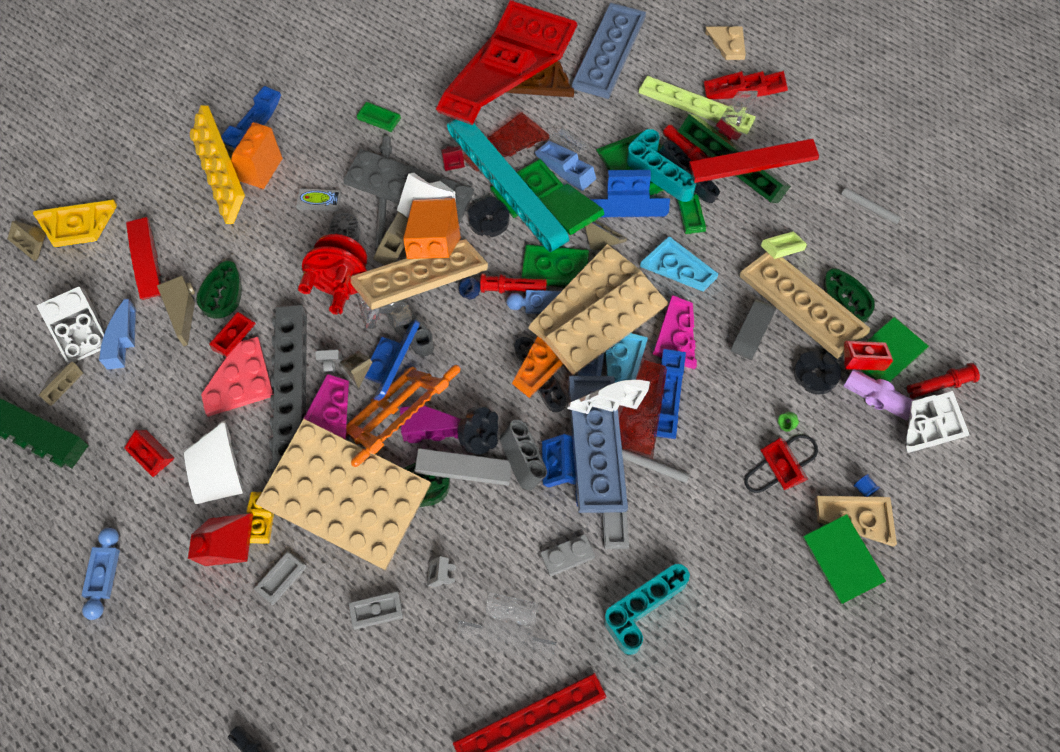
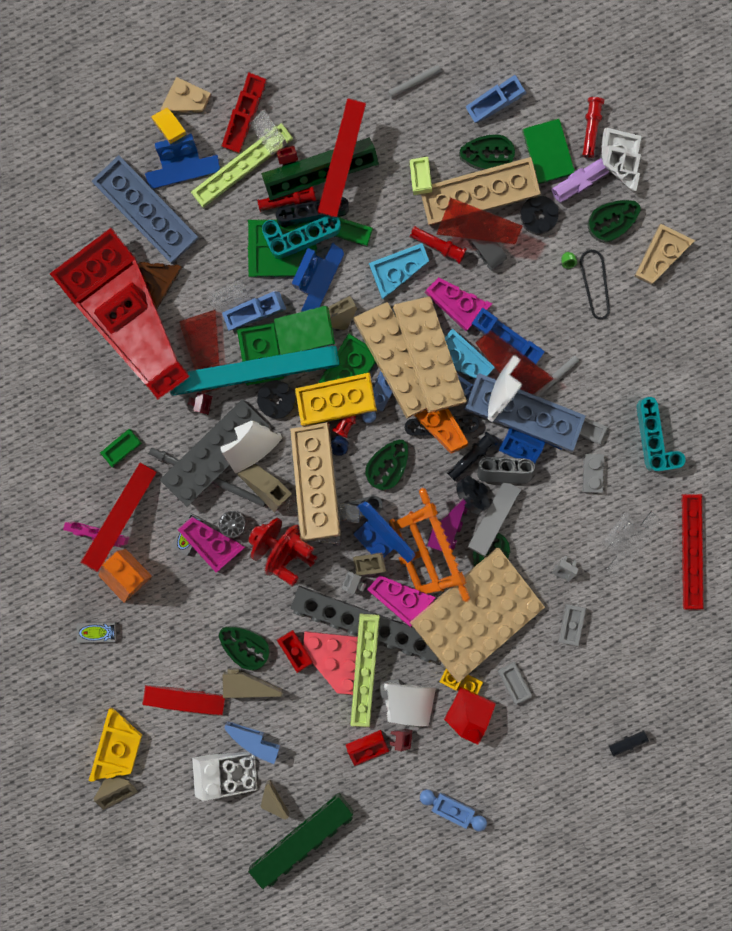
camera: 70 degrees left, 25 degrees up
(169, 481) = (403, 739): none -> dark red tile
(189, 165) = (96, 632): none -> tile
(217, 165) = (115, 609): yellow plate -> none
(235, 405) = (364, 670): none -> yellowish green tile
(260, 113) = (71, 557): blue slope -> none
(286, 122) = (85, 530): none -> dark pink wing
(309, 129) = (118, 517): none -> red tile
(315, 214) = (210, 543): none -> dark pink wing
(432, 229) = (280, 455): orange slope -> none
(471, 329) = (377, 462): none -> dark green piece
(515, 262) = (335, 399): none -> yellow tile
(531, 419) = (478, 450): none -> black pin
(670, 58) = (180, 163): none -> blue plate
(694, 32) = (168, 125): none -> yellow slope
(727, 298) = (447, 248): none -> red pin
(768, 307) = (473, 223): none -> clear red wing
(784, 464) = (599, 282): red slope -> none
(844, 559) = (687, 283): green tile -> none
(866, 355) = (549, 172): red slope -> none
(866, 486) = (644, 234): blue axle -> none
(875, 452) = (605, 212): none -> dark green piece
(906, 280) = (496, 99): none -> medium blue slope

